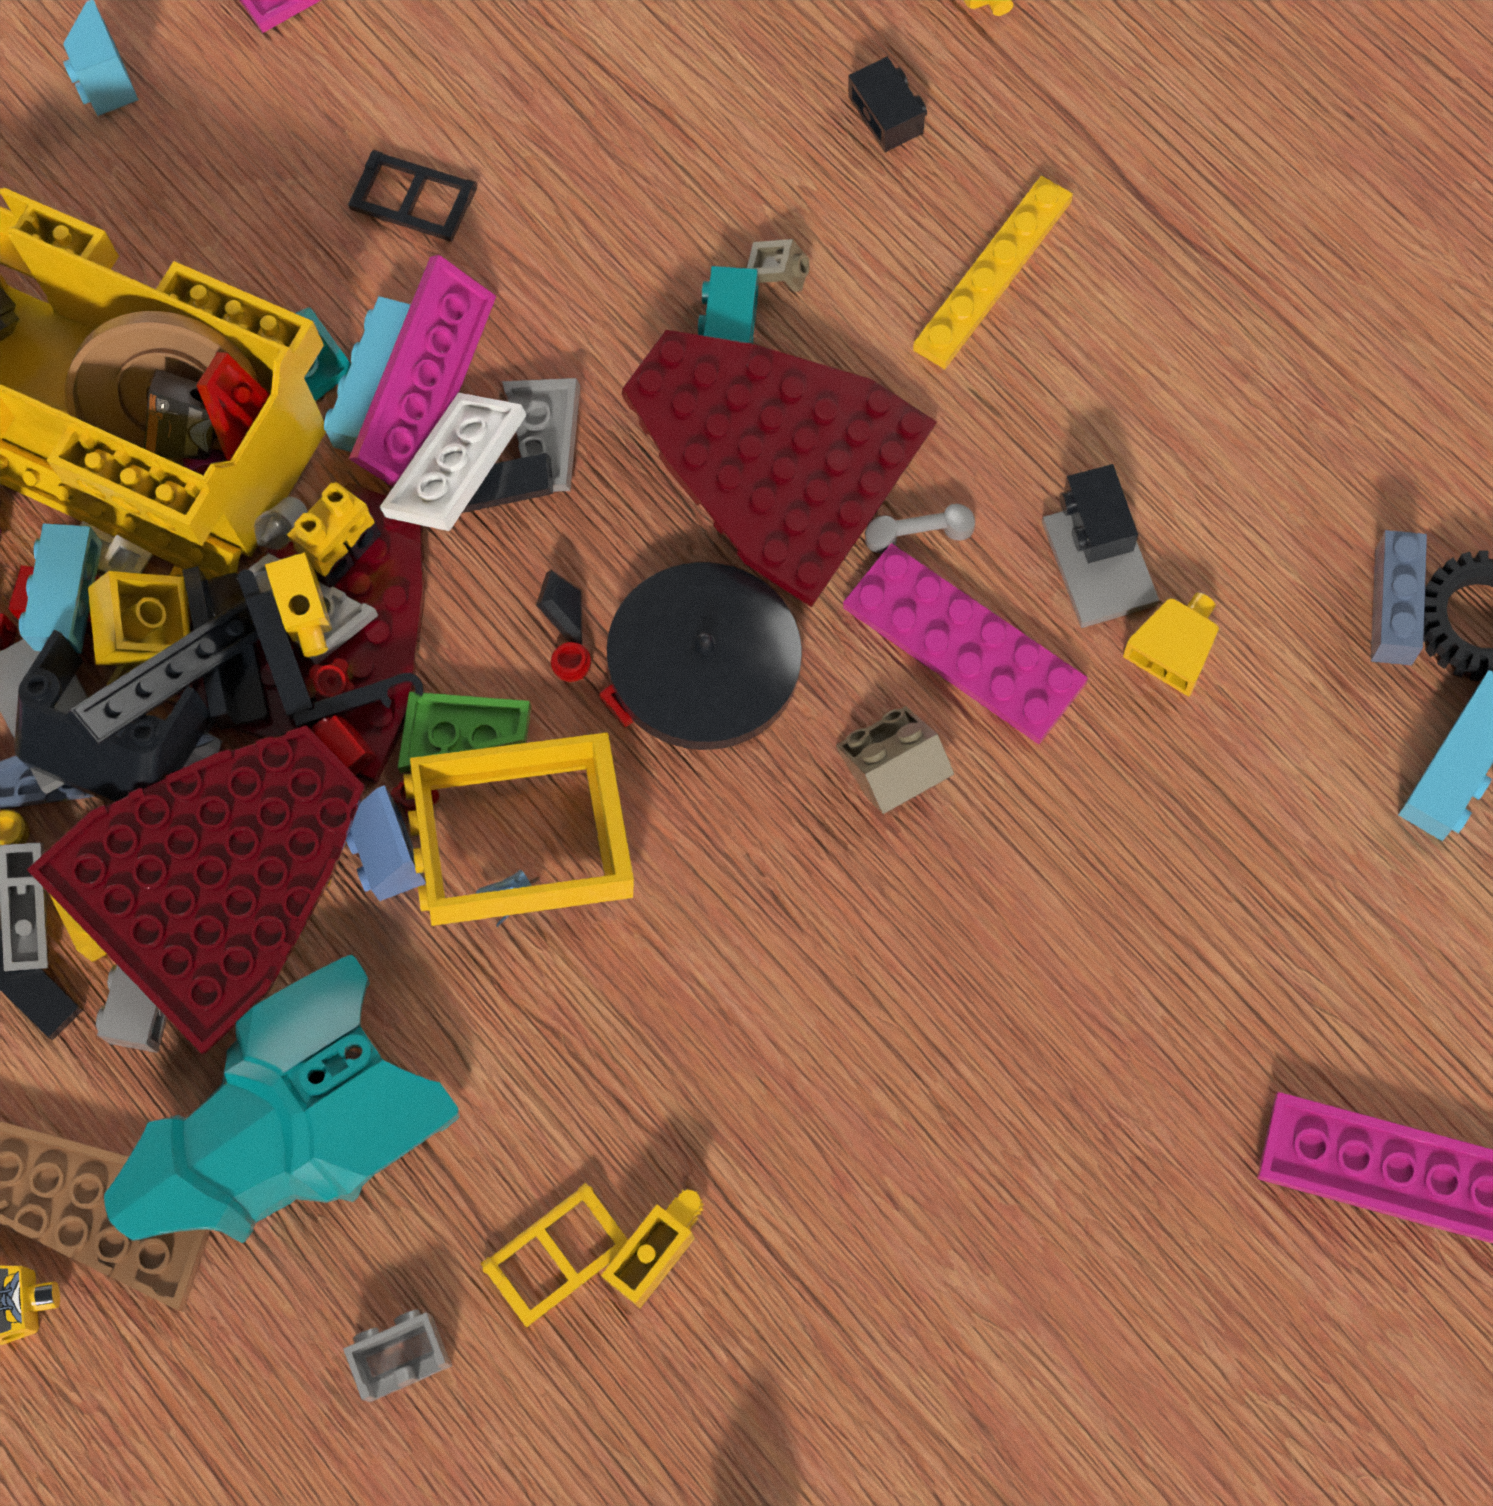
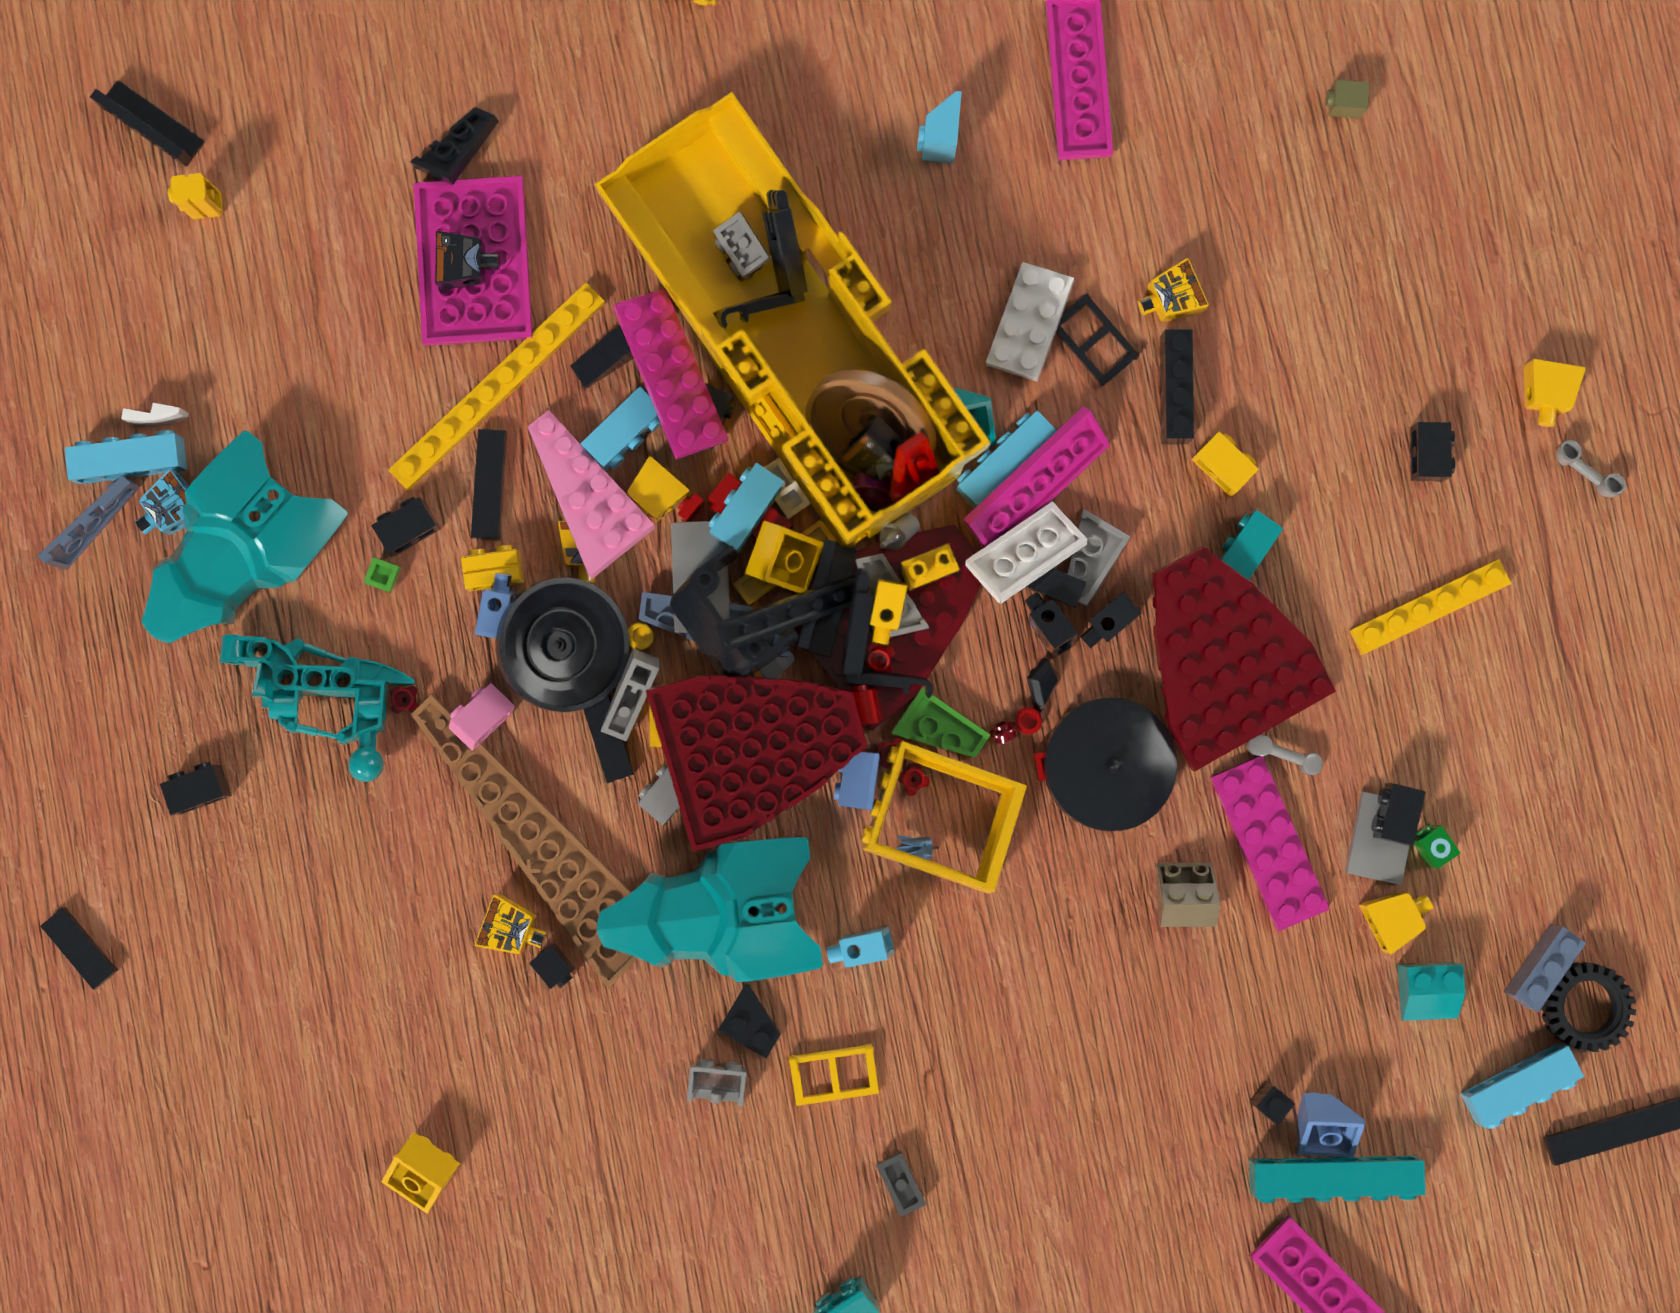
camera: 20 degrees right, 15 degrees up
(85, 1323) = (553, 967): none -> black brick
(321, 214) = (1030, 321): none -> white plate
(405, 1250) = (750, 1023): none -> black wing
(456, 801) = (921, 780): none -> red plate
(480, 95) = (1174, 294): none -> torso
(515, 1046) = (873, 944): none -> medium azure torso
(536, 531) = (1055, 635): none -> black torso
(539, 190) = (1176, 386): none -> black brick
(545, 689) = (1004, 732): none -> dark red plate
(606, 480) = (1122, 613): none -> black torso
(647, 242) = (1225, 463): none -> yellow brick
(654, 1248) = (891, 1107): yellow hinge -> none
(728, 1351) = (900, 1184): none -> dark grey plate
(780, 262) = (1299, 525): dark tan bracket -> none
(1050, 28) = (1569, 454): none -> light grey bar
(1161, 956) = (1272, 1102): none -> black brick
(1170, 530) = (1435, 845): none -> green brick
(1254, 947) = (1327, 1127): none -> medium blue slope
(1277, 704) = (1431, 990): none -> teal slope
(1305, 1006) = (1337, 1177): none -> teal brick

